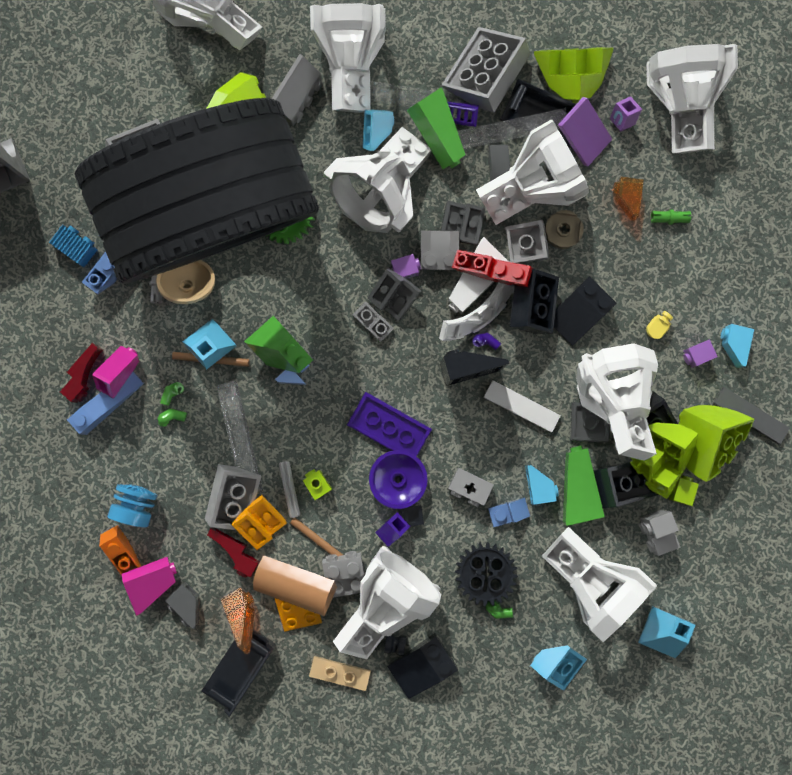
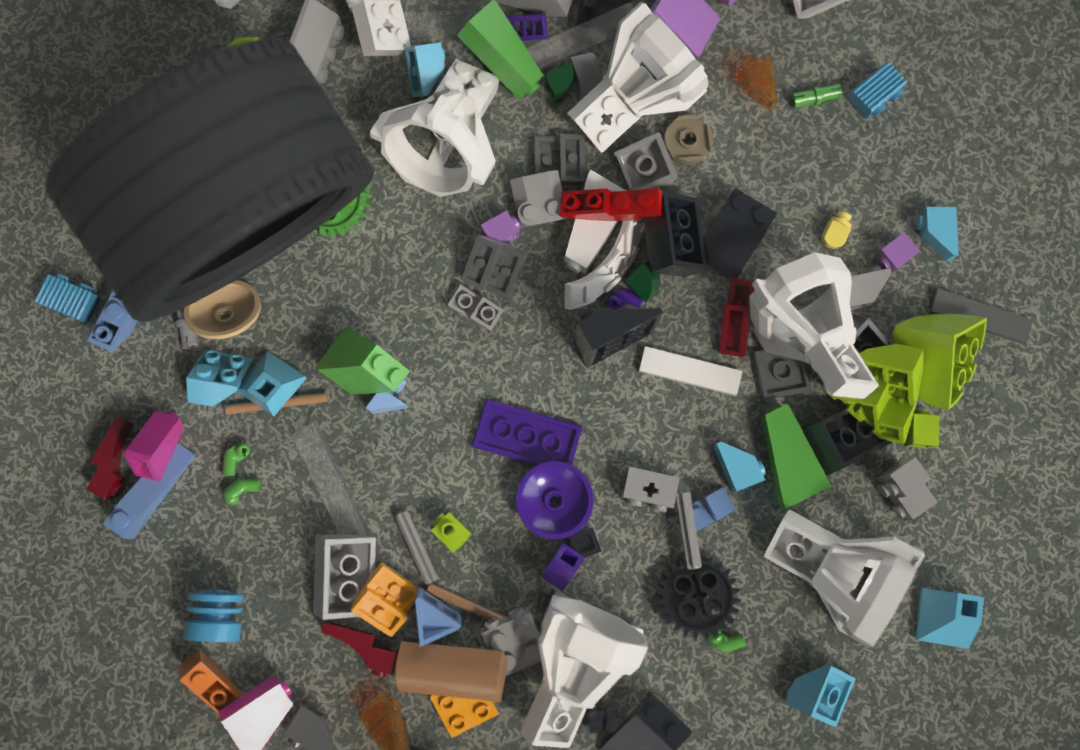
camera: 15 degrees left, 5 degrees down
(171, 330) = (216, 376): none -> medium azure slope
(291, 544) = (434, 617): none -> medium blue slope
(477, 162) = (560, 82): none -> dark green brick
(490, 524) = (688, 530): none -> light grey axle
(503, 332) = (644, 282): none -> dark green brick
(566, 374) = (736, 318): none -> dark red slope
(670, 374) = (867, 286): none -> light grey slope
(718, 223) = (877, 90): none -> dark azure brick

